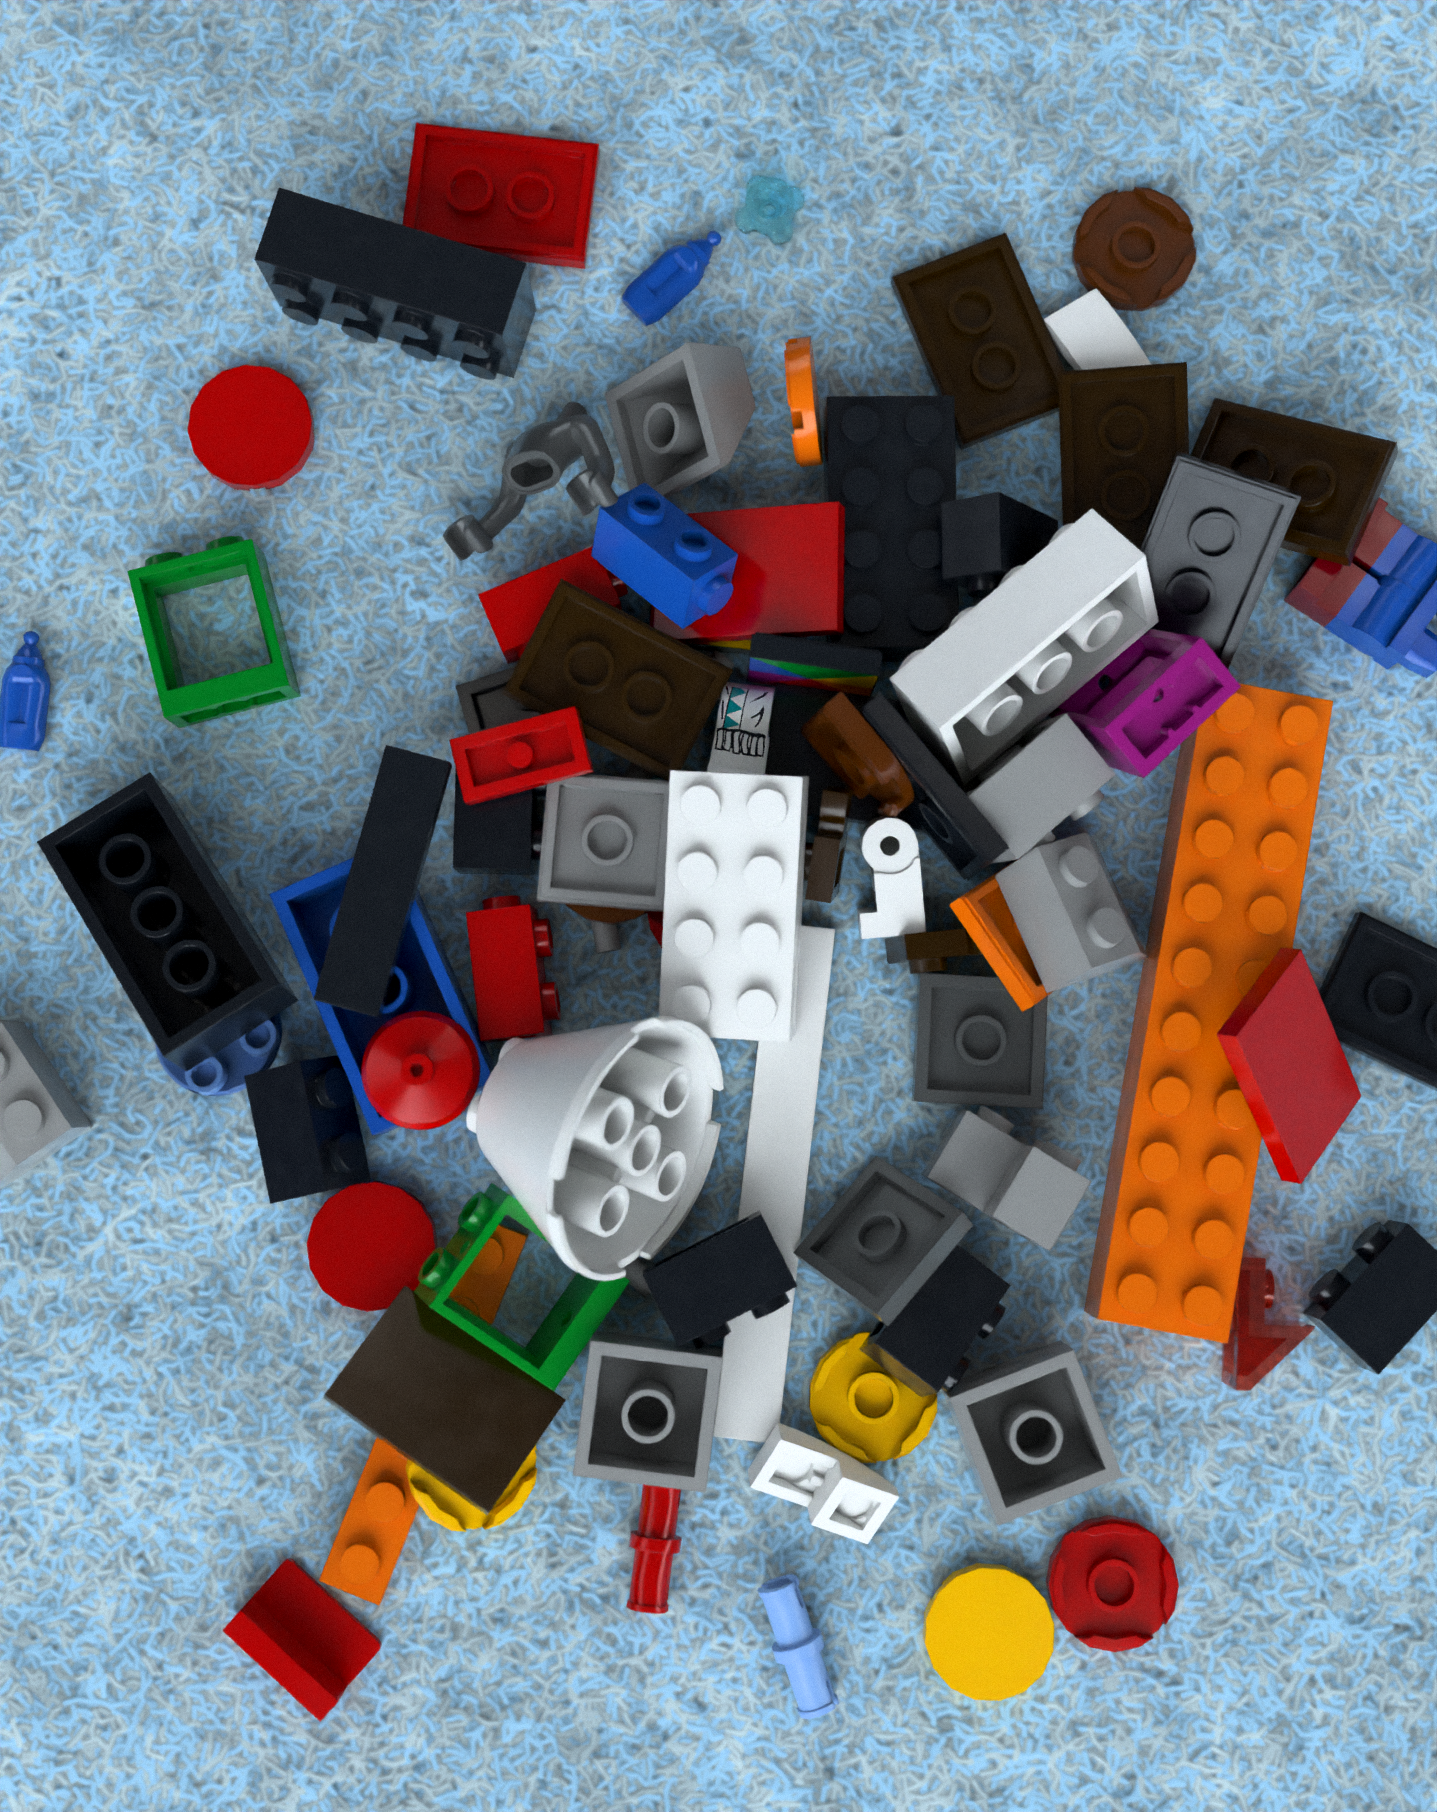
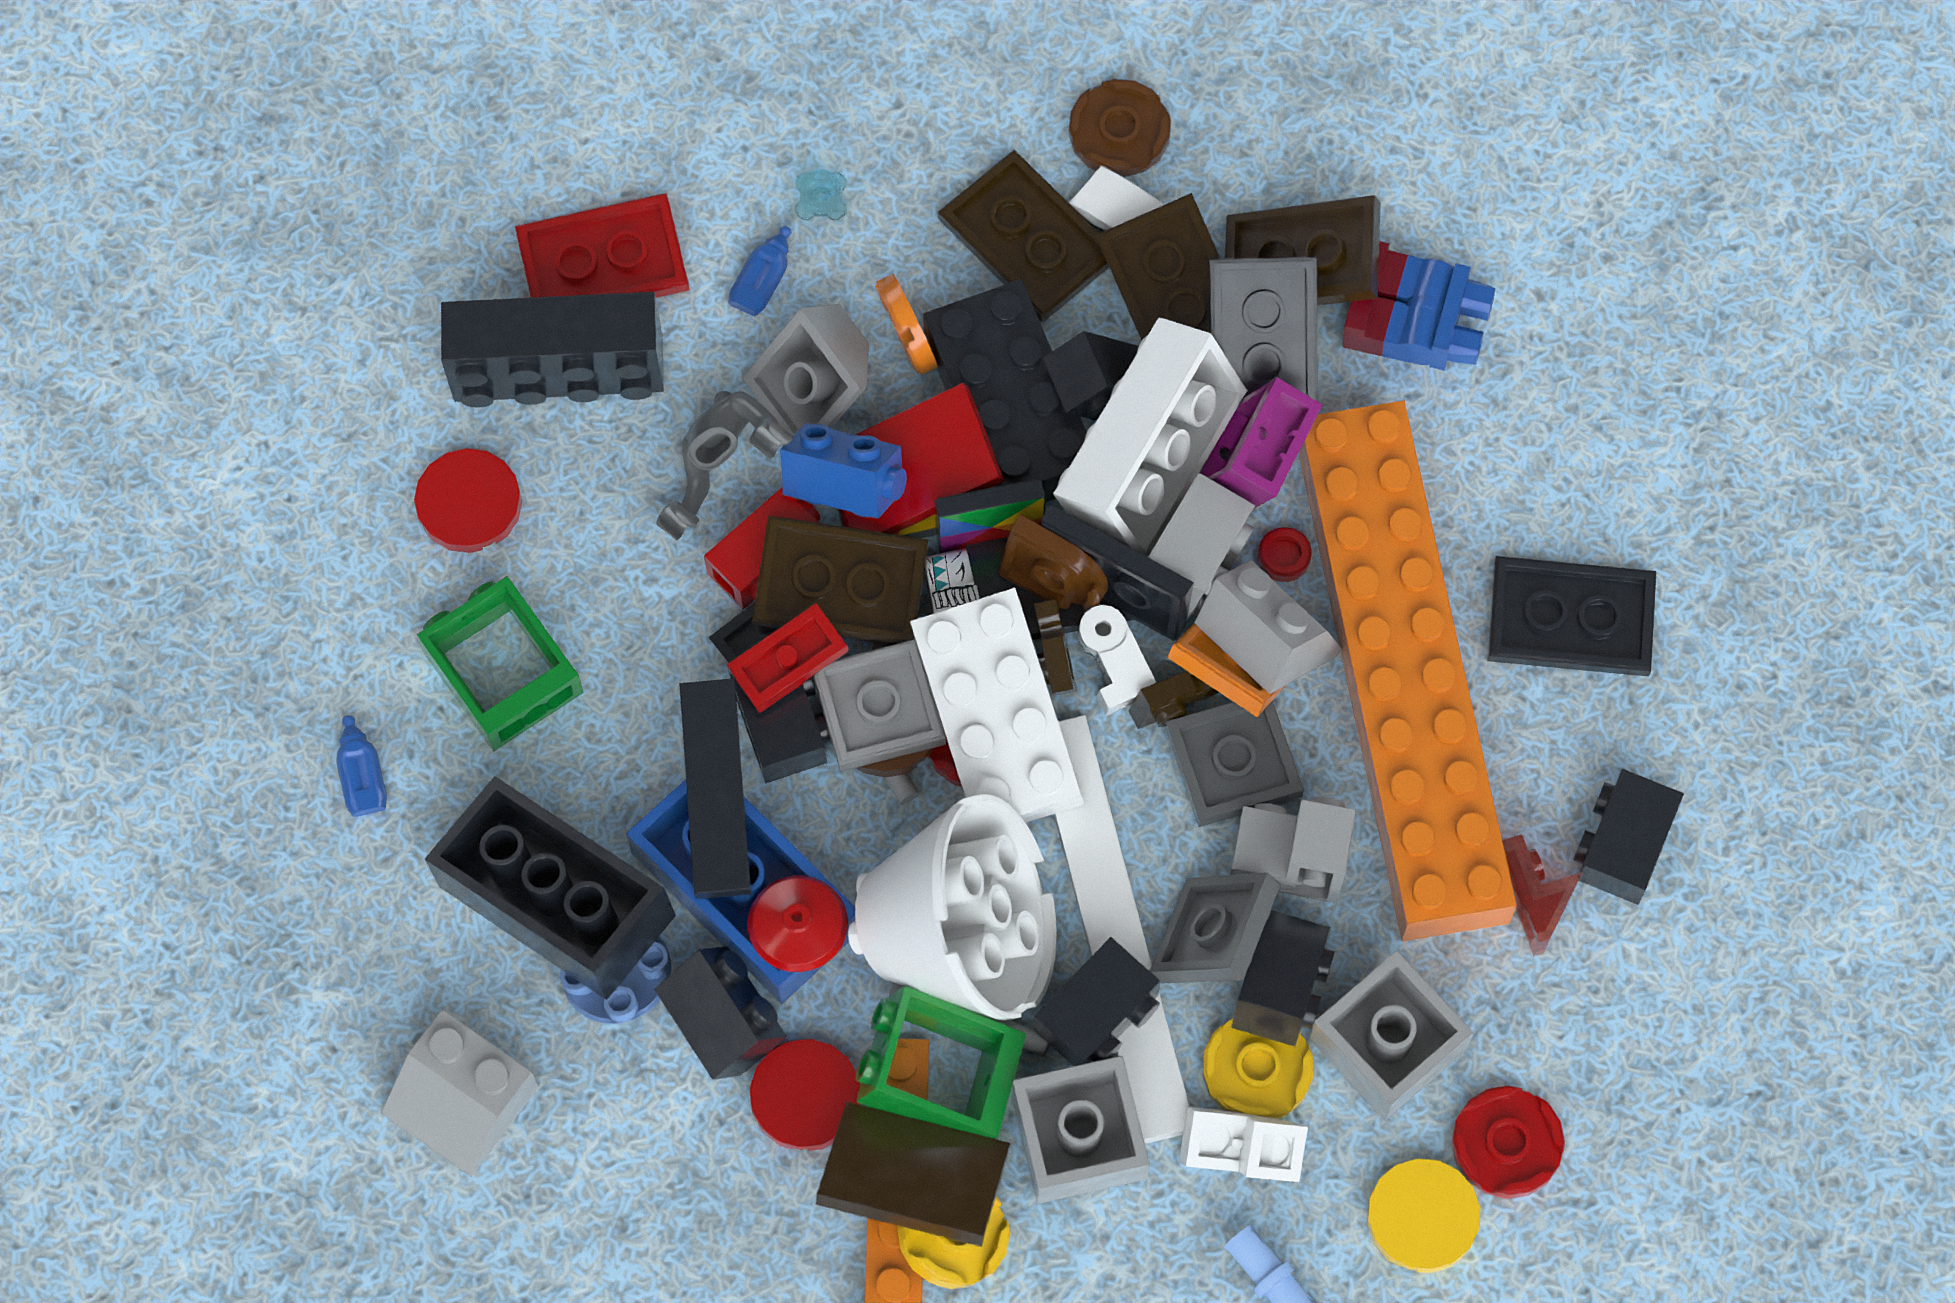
camera: 15 degrees left, 15 degrees down
(509, 970) = (834, 833): red brick -> none
(654, 1549) = (1126, 1240): red pin -> none
(1126, 821) = (1284, 554): none -> red tile
(1289, 1064) = (1480, 679): red tile -> none

